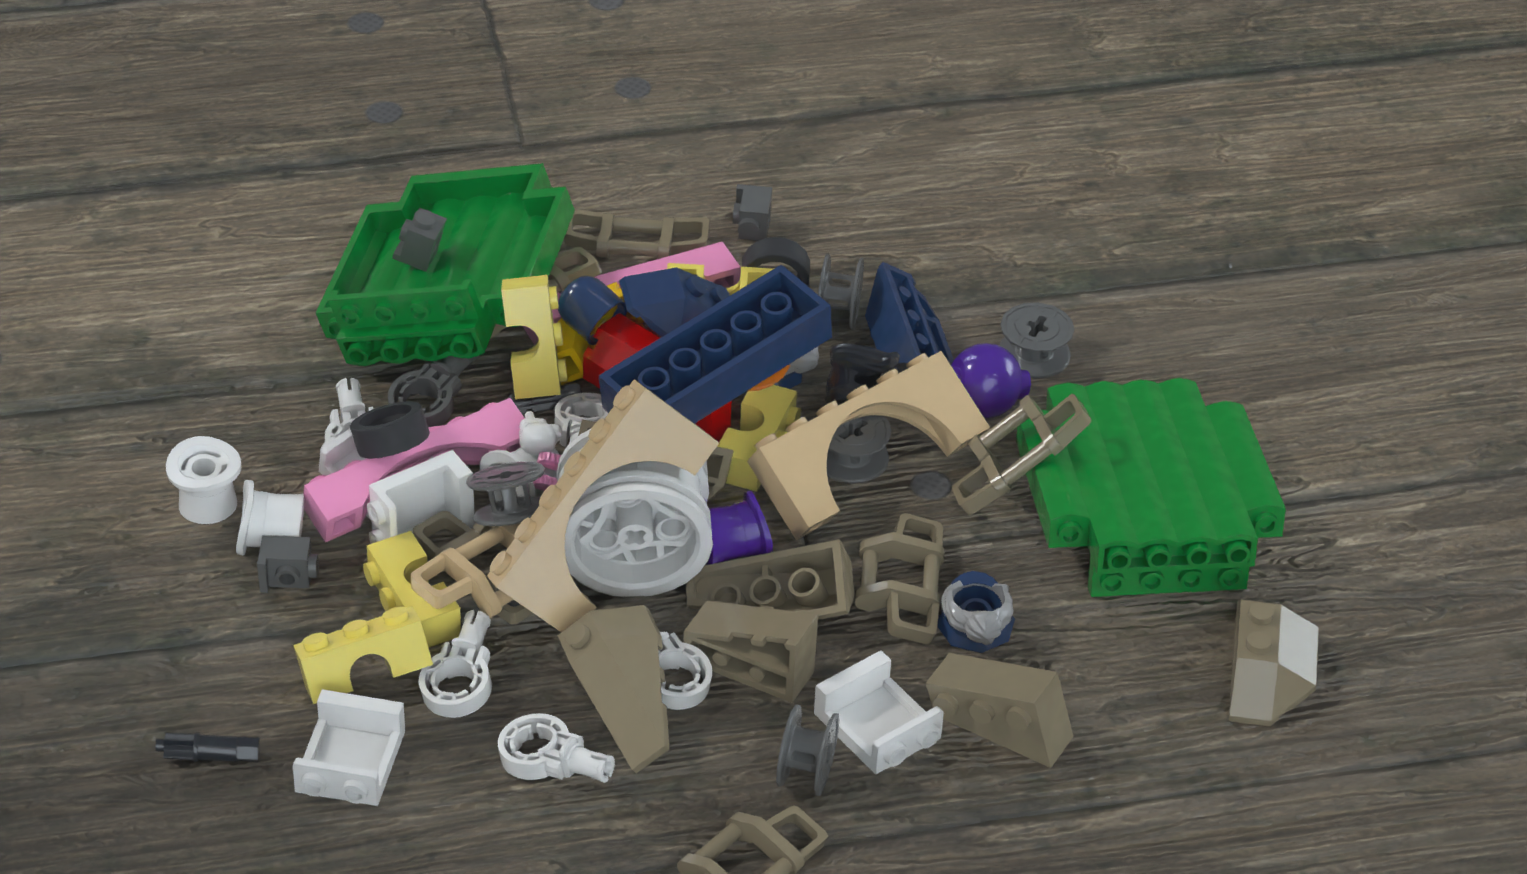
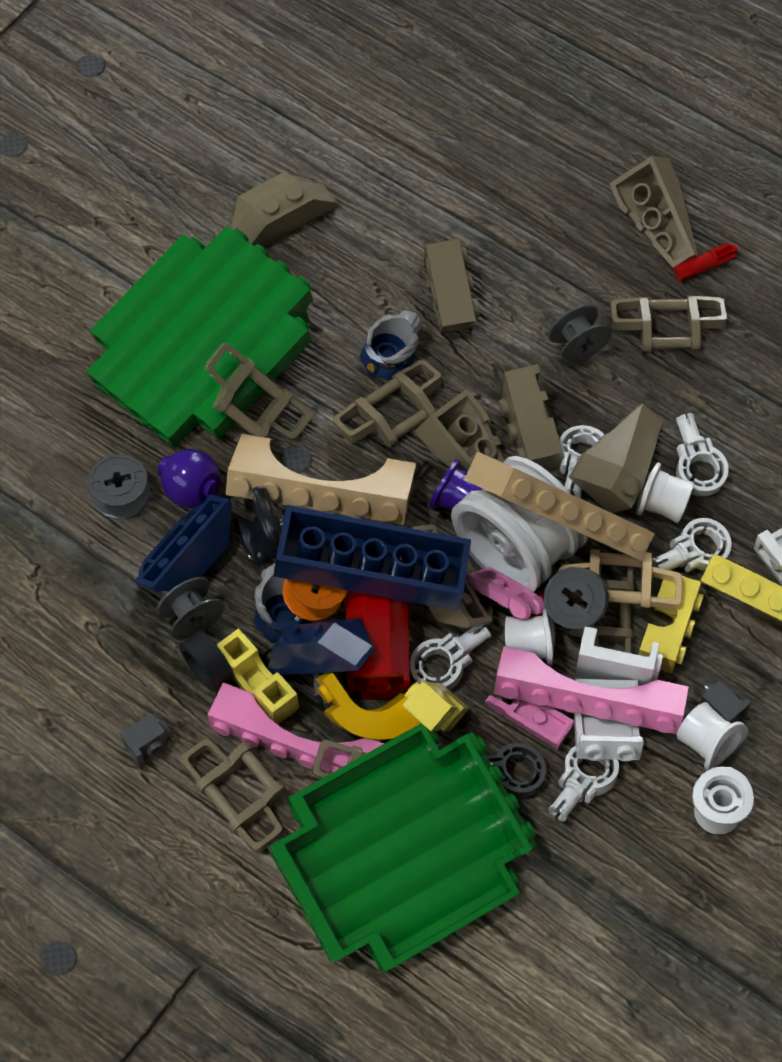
camera: 130 degrees left, 20 degrees up
(389, 430) = (598, 729): black tyre -> none
(420, 239) = (404, 874): dark grey brick -> none
(537, 435) = (515, 627): white piece -> none
(541, 675) = (664, 495): none -> white piece
(586, 303) = (378, 691): dark blue helmet -> none
(876, 714) = (508, 336): white panel -> none

